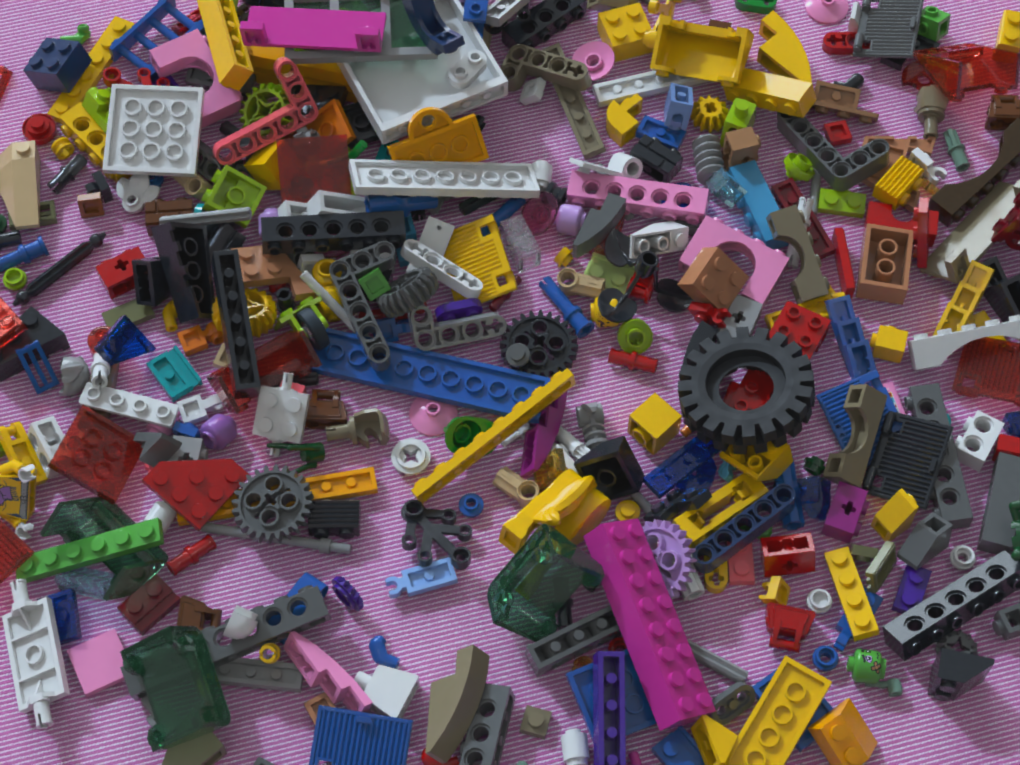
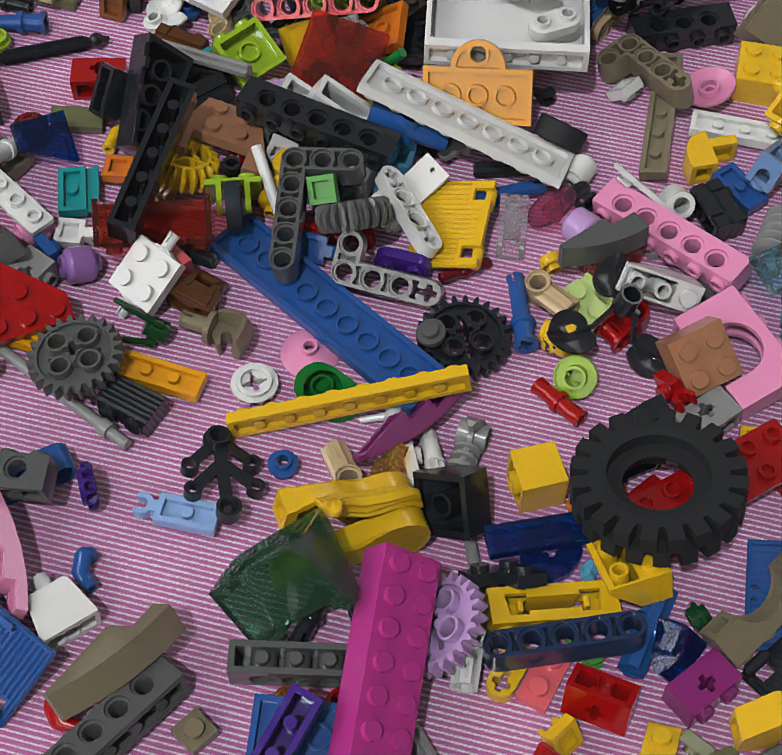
camera: 30 degrees right, 5 degrees down
(511, 151) = (560, 133): none -> black tyre
(627, 510) = (450, 556): yellow plate -> none

